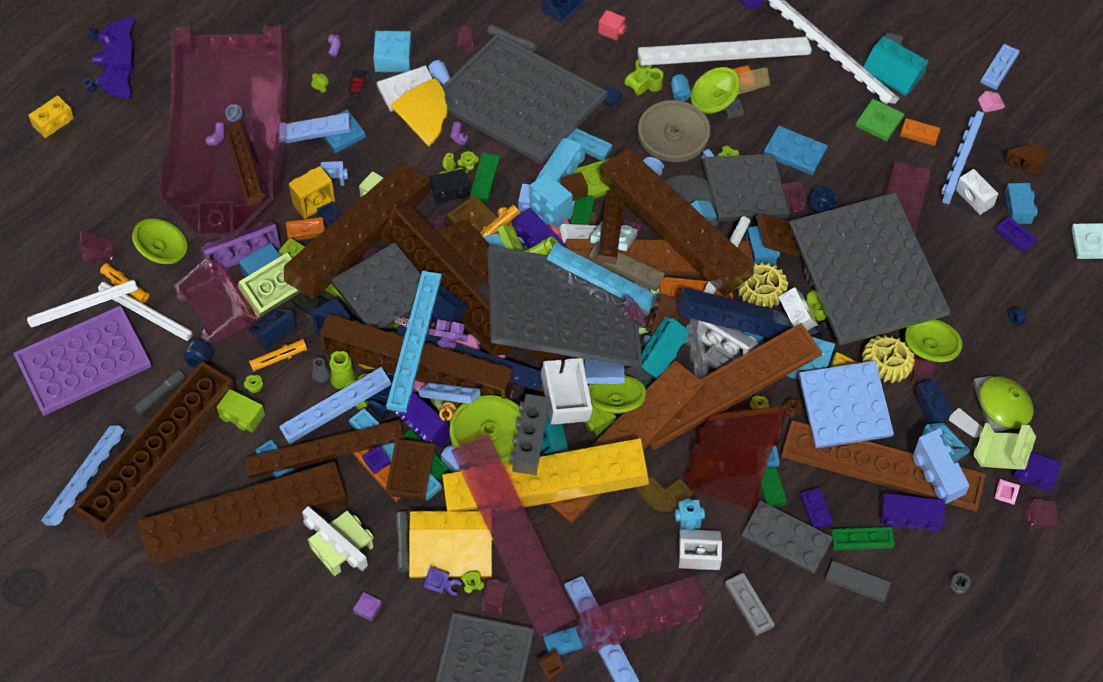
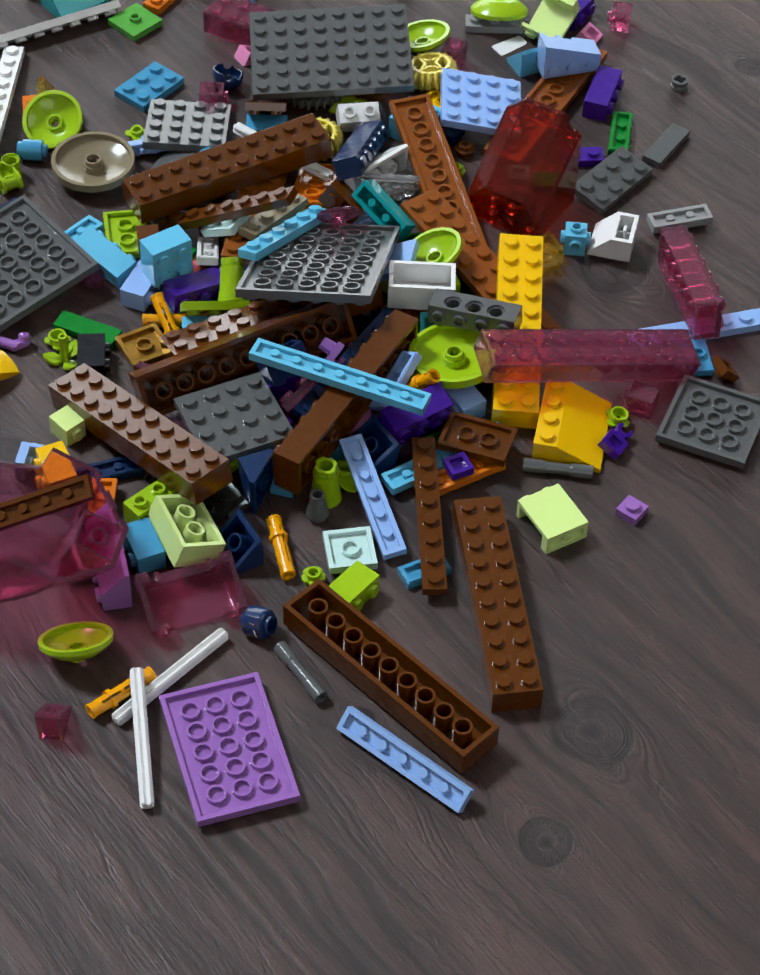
camera: 80 degrees left, 10 degrees down
(282, 402) = (347, 546): none -> light aqua plate
(340, 544) = (558, 507): white plate -> none
(932, 402) = (488, 54): dark blue brick -> none

